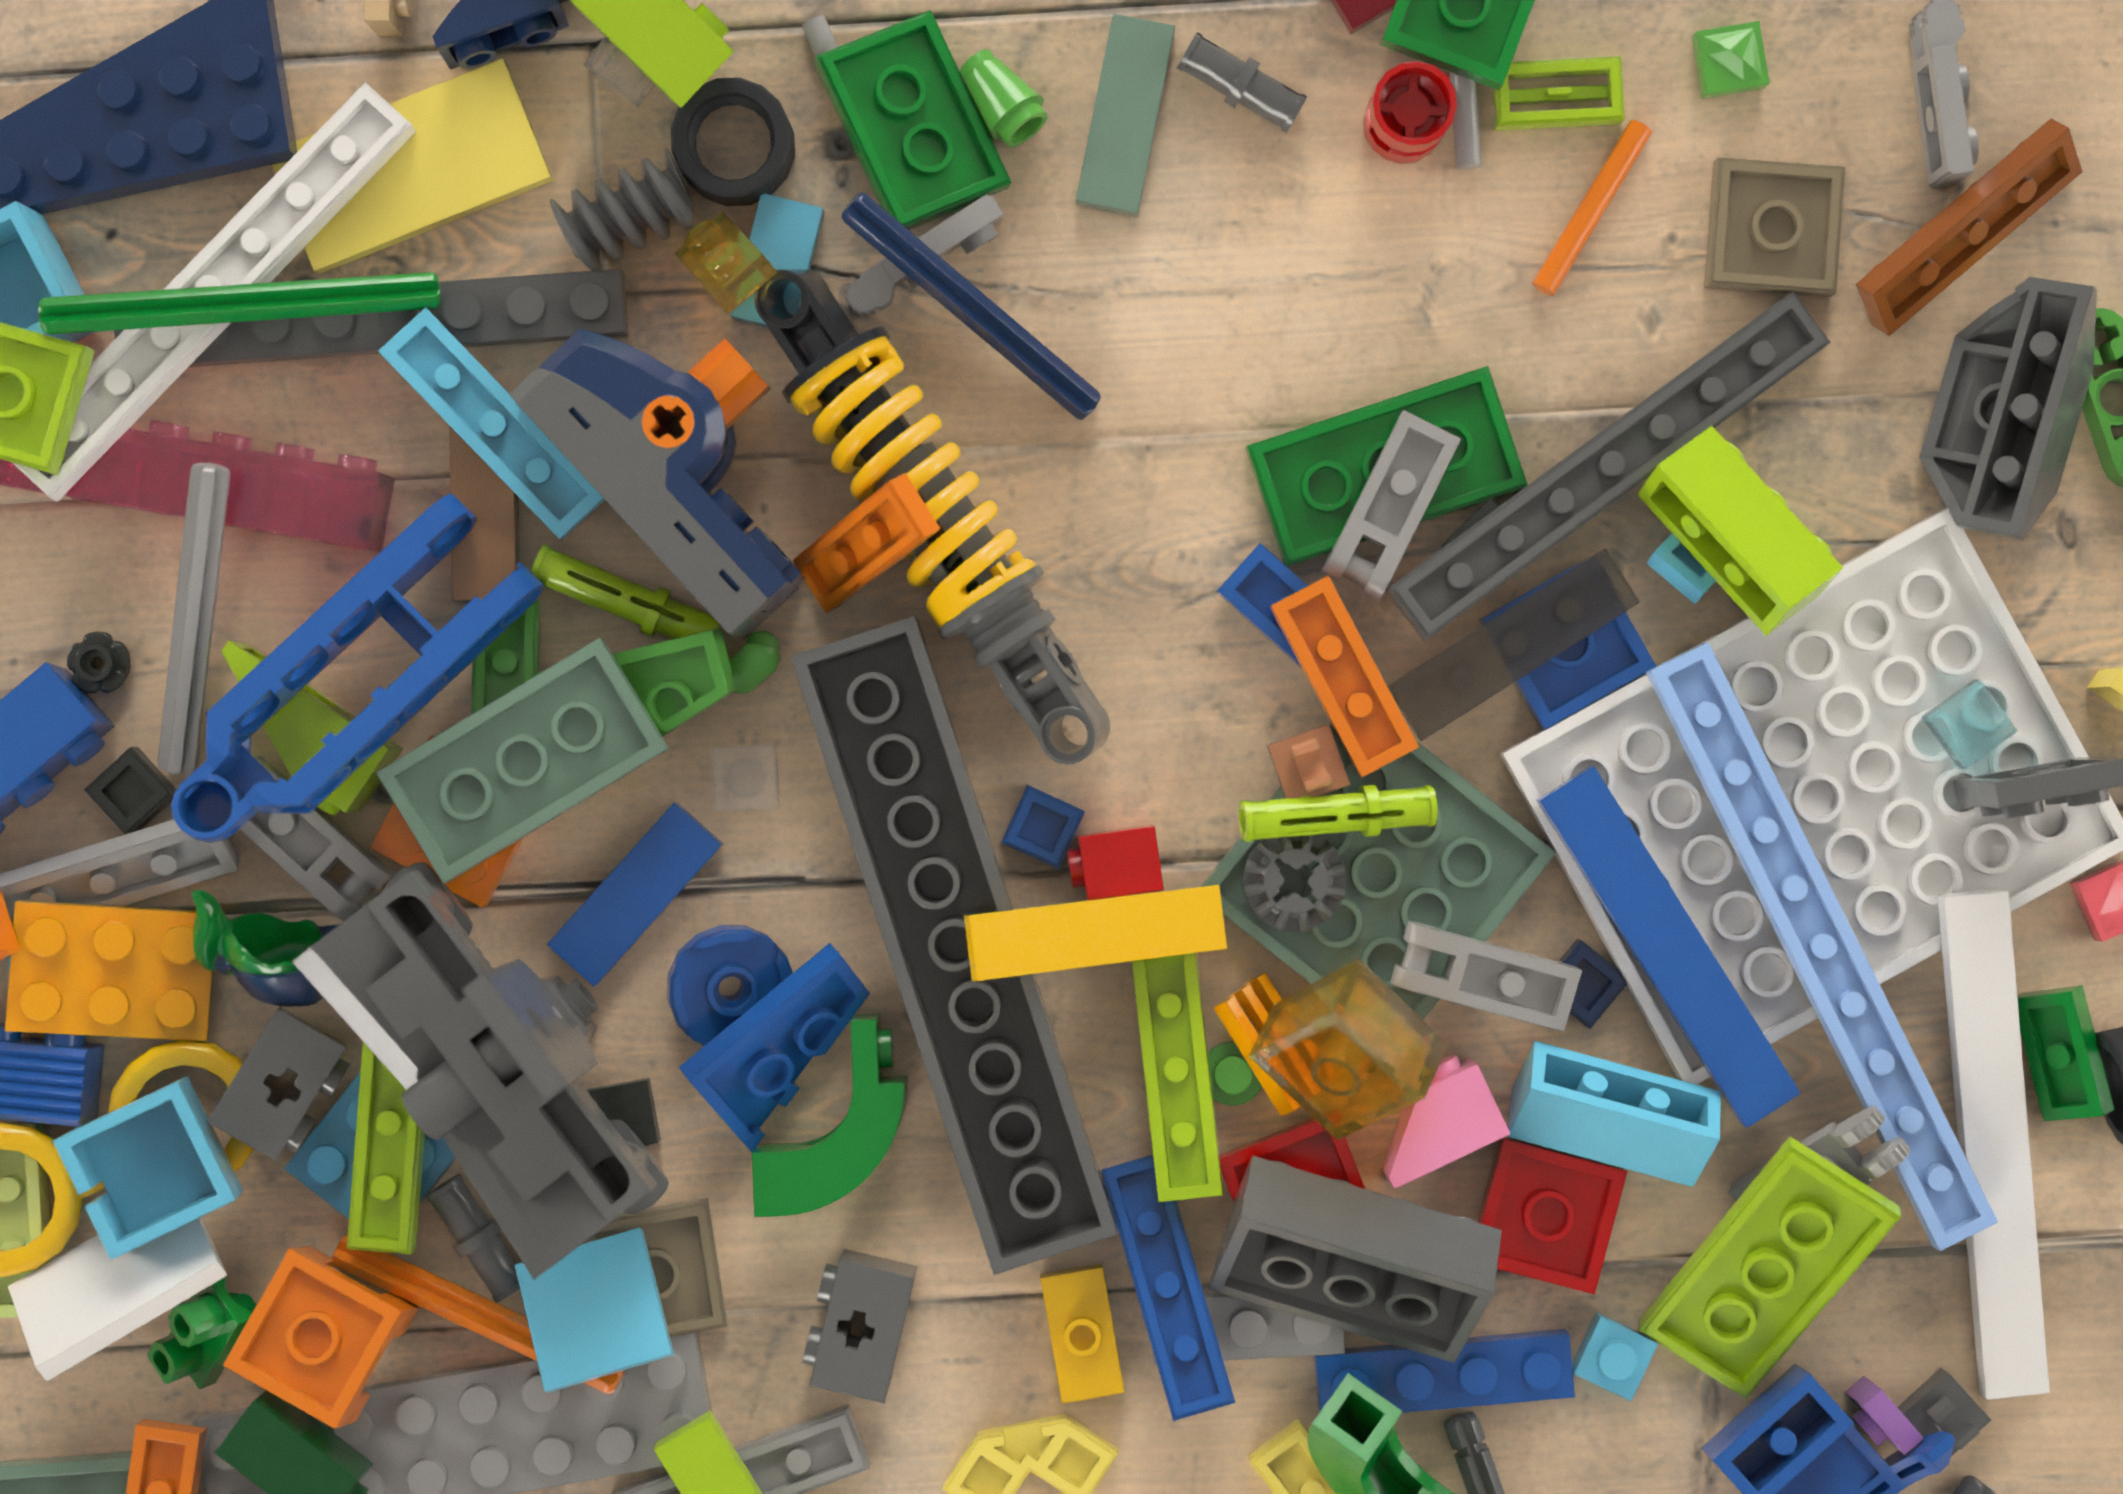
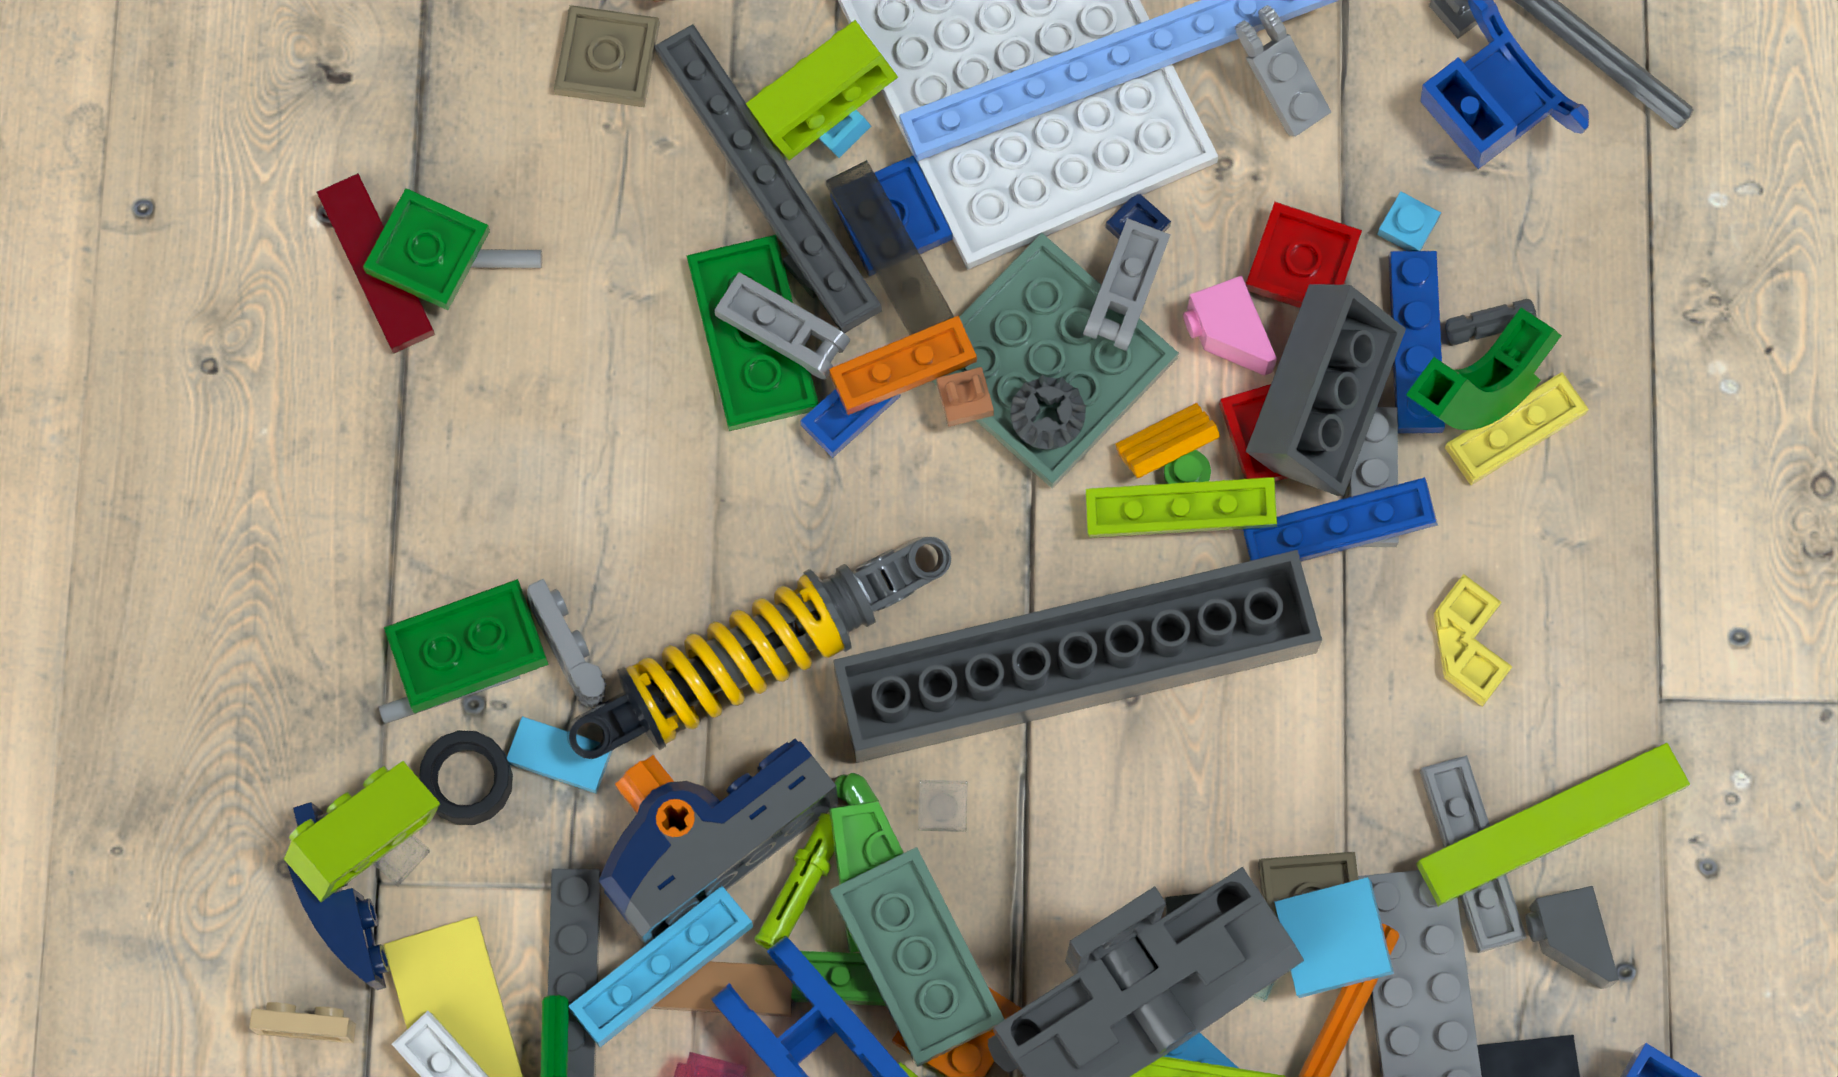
camera: 85 degrees left, 15 degrees down
(476, 1237) = (1277, 1033): dark grey pin -> none
(625, 212) = (508, 858): dark grey piece -> none
(635, 894) = (1022, 895): blue tile -> none
(710, 959) = (1105, 807): blue plate -> none
(724, 261) = (557, 783): clear yellow plate -> none
(766, 1049) = (1149, 805): blue wing -> none
(825, 1169) = (1223, 744): green arch -> none
(852, 1362) = (1383, 749): dark grey brick -> none
(866, 543) = (776, 689): orange tile -> none
(970, 305) = (608, 607): dark blue axle -> none
(1004, 100) = (456, 578): bright green cone -> none
(1043, 826) = (995, 593): blue tile -> none
(1082, 1333) = (1373, 594): yellow plate -> none
(1095, 932) = (1075, 549): yellow tile -> none
(1117, 863) = (1026, 539): red brick -> none
(1125, 115) = (477, 495): sand green tile -> none
(1241, 82) = (463, 410): dark grey pin -> none
(1337, 813) = (1001, 356): lime pin -> none
(1348, 1050) = (1173, 379): clear yellow brick -> none
(1409, 112) = (495, 282): red wheel -> none
(1566, 117) = (497, 157): lime tile -> none
(1592, 207) = (580, 177): orange bar -> none
(1615, 1114) = (1232, 206): medium azure brick -> none
(1668, 946) = (1113, 160): blue tile -> none
(1730, 59) = (484, 76): bright green tile -> none
(1769, 1267) = (1348, 109): lime tile -> none
(1881, 1418) = (1459, 42): medium lavender plate -> none

